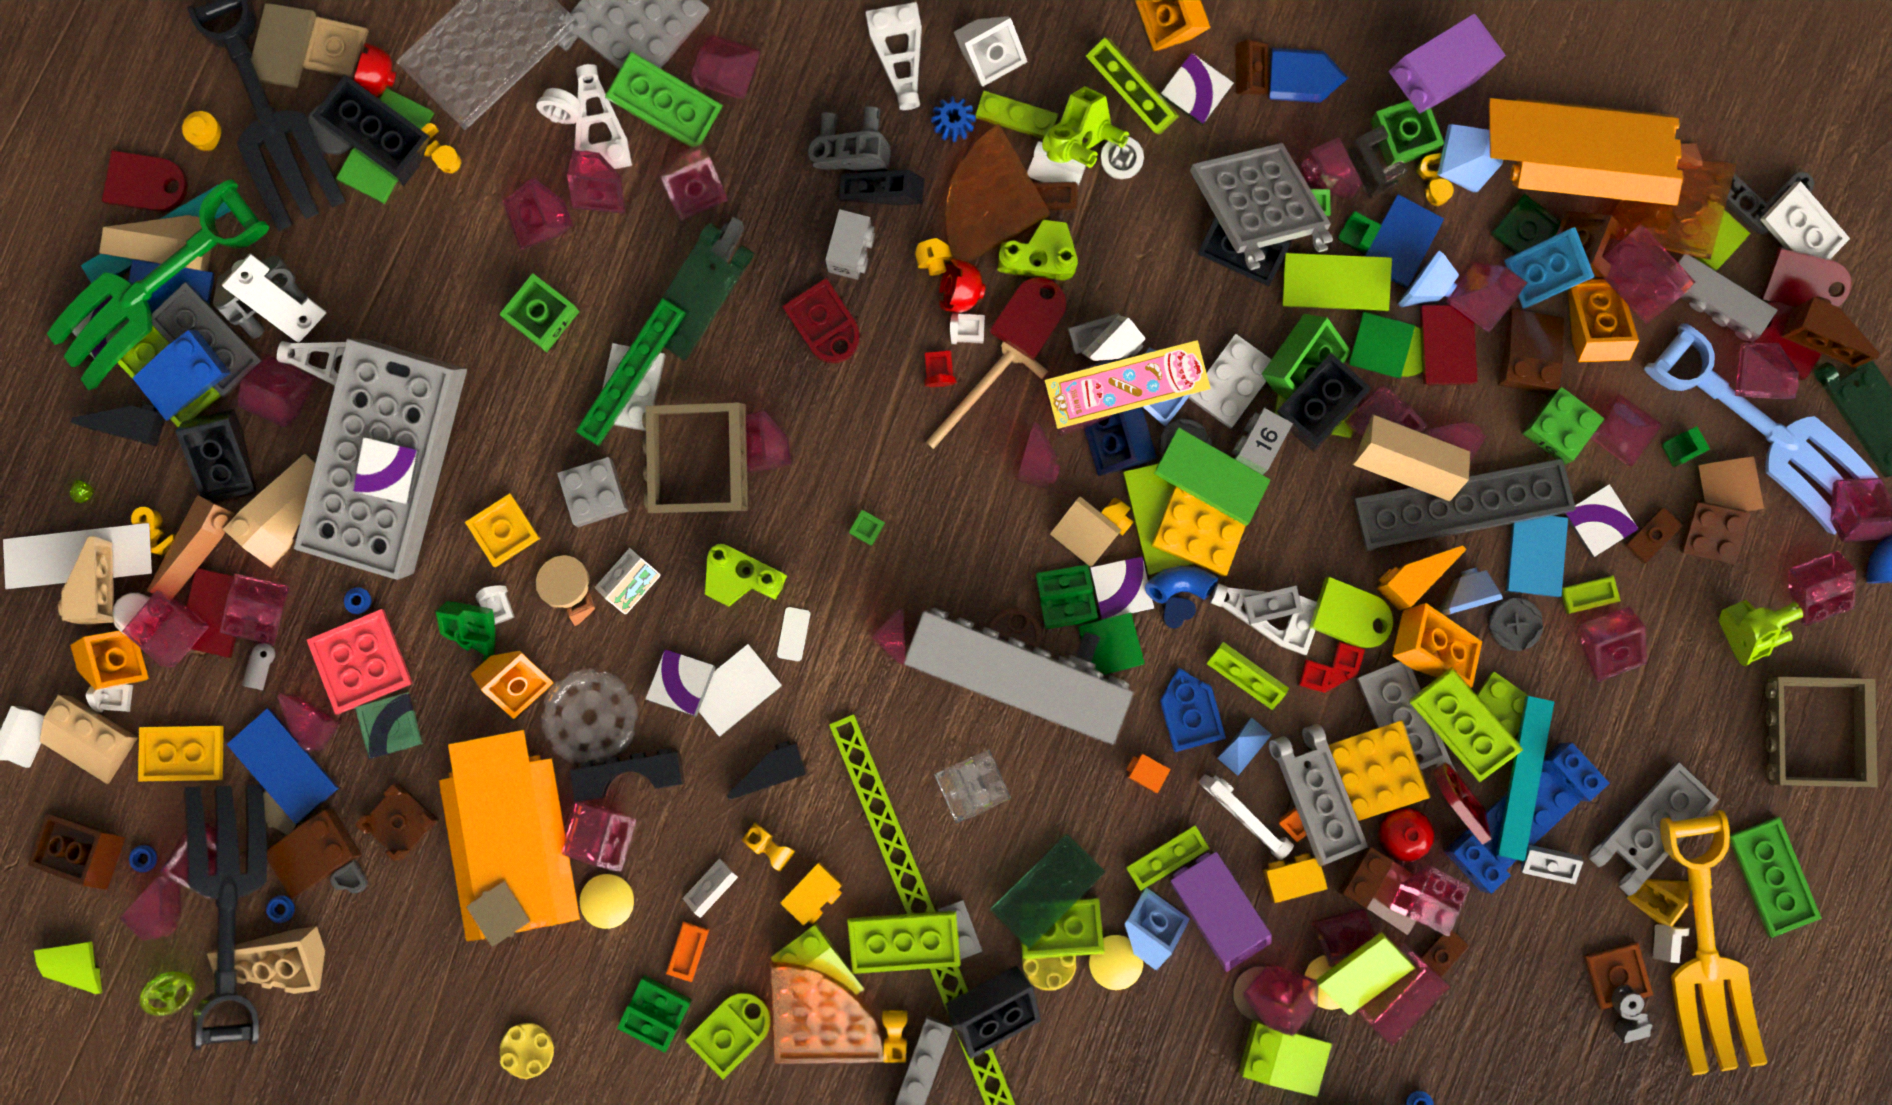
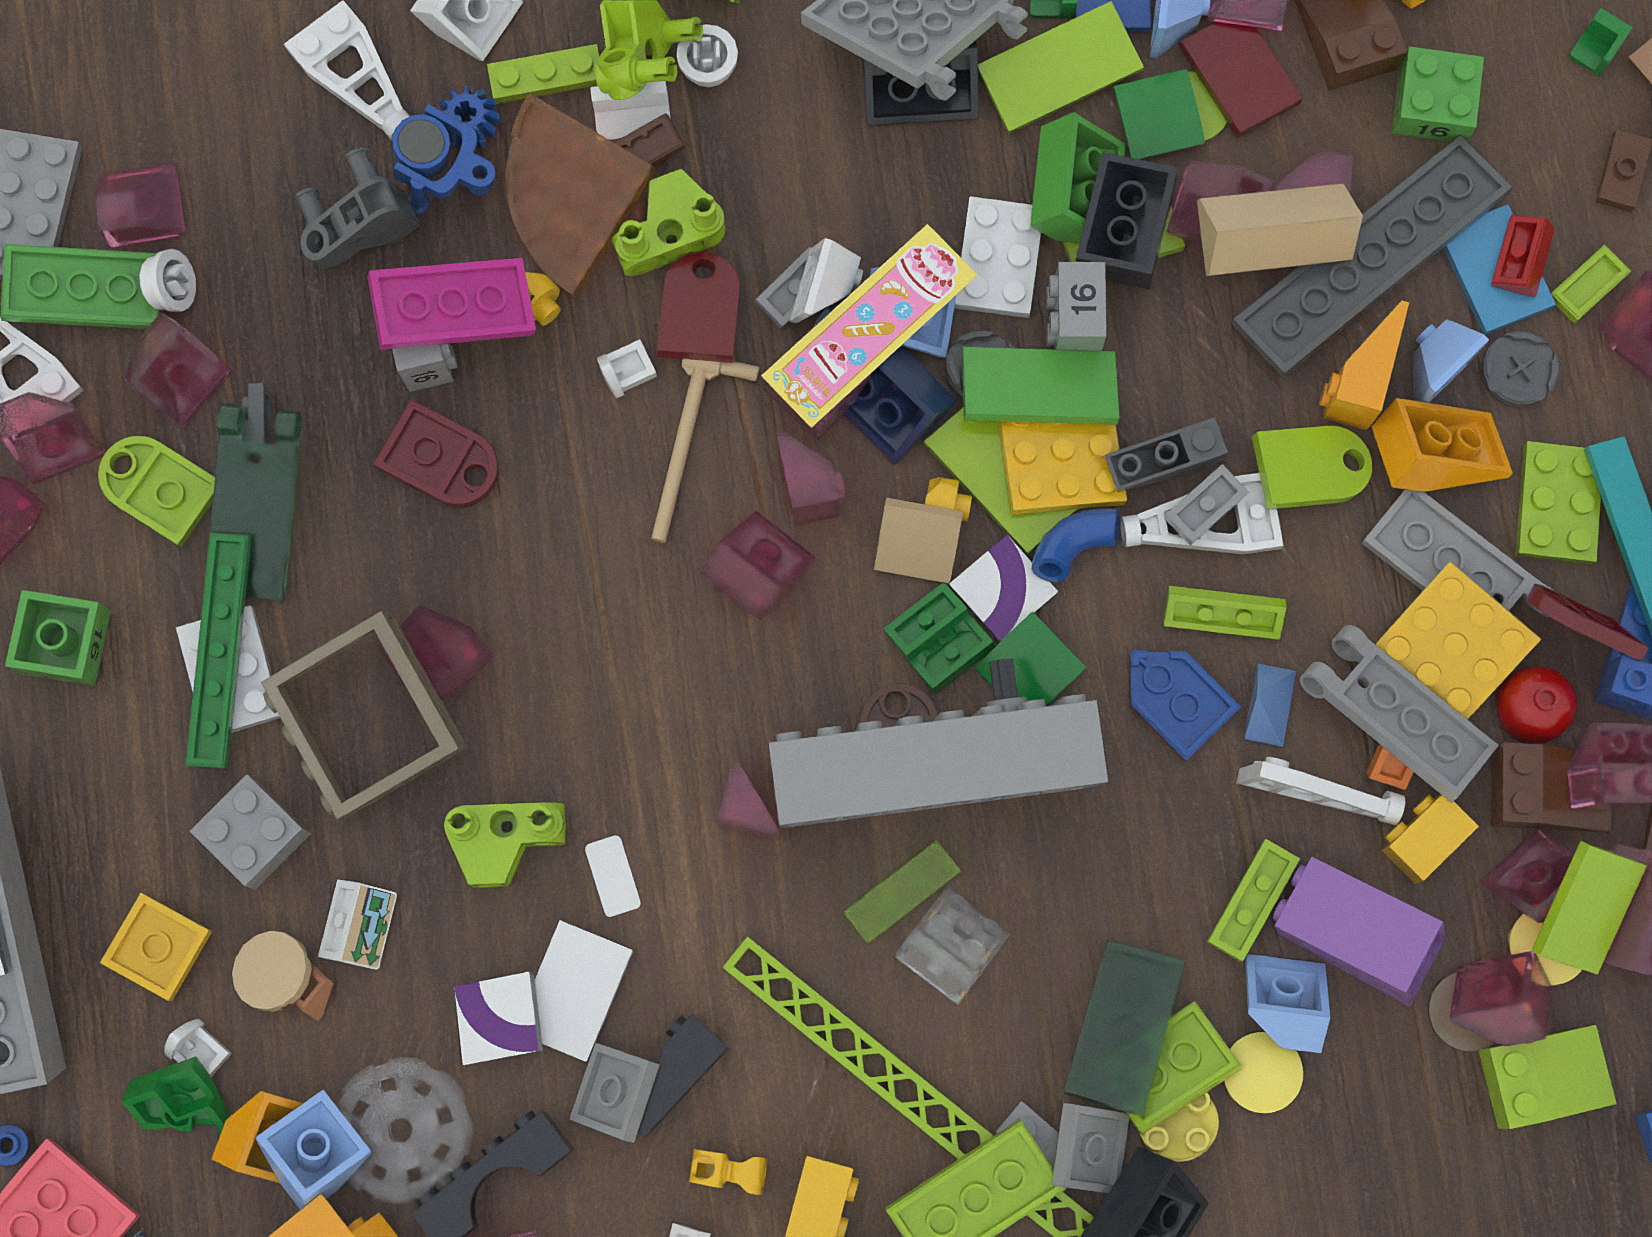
camera: 25 degrees left, 5 degrees down
(532, 701) = (313, 1150): none -> light blue slope
(646, 251) = (159, 488): none -> lime tile
(717, 126) = (168, 281): none -> white piece
(725, 764) = (614, 1092): none -> light grey plate
(866, 528) = (634, 687): bright green plate -> none
(879, 235) = (451, 303): none -> dark pink plate
(883, 187) = (435, 240): black slope -> none
(913, 128) = (423, 151): none -> blue piece
(939, 369) = (618, 438): red tile -> none
(960, 738) = (901, 892): none -> clear neon green tile
(961, 286) = (590, 318): red cylinder -> none
(981, 493) = (757, 565): none -> clear pink slope
(987, 950) = (1090, 1148): none -> light grey plate
(1147, 772) = (1167, 804): orange brick -> none
(1177, 611) = (1090, 579): dark blue tile -> none
(1266, 562) = (1168, 456): none -> dark grey slope
(1343, 667) = (1338, 537): red tile -> none
(1465, 724) = (1532, 523): lime tile -> none
(1558, 555) = (1523, 255): none -> red slope
(1601, 521) = (1550, 186): tile -> none
(1625, 430) = (1516, 62): clear pink slope -> none

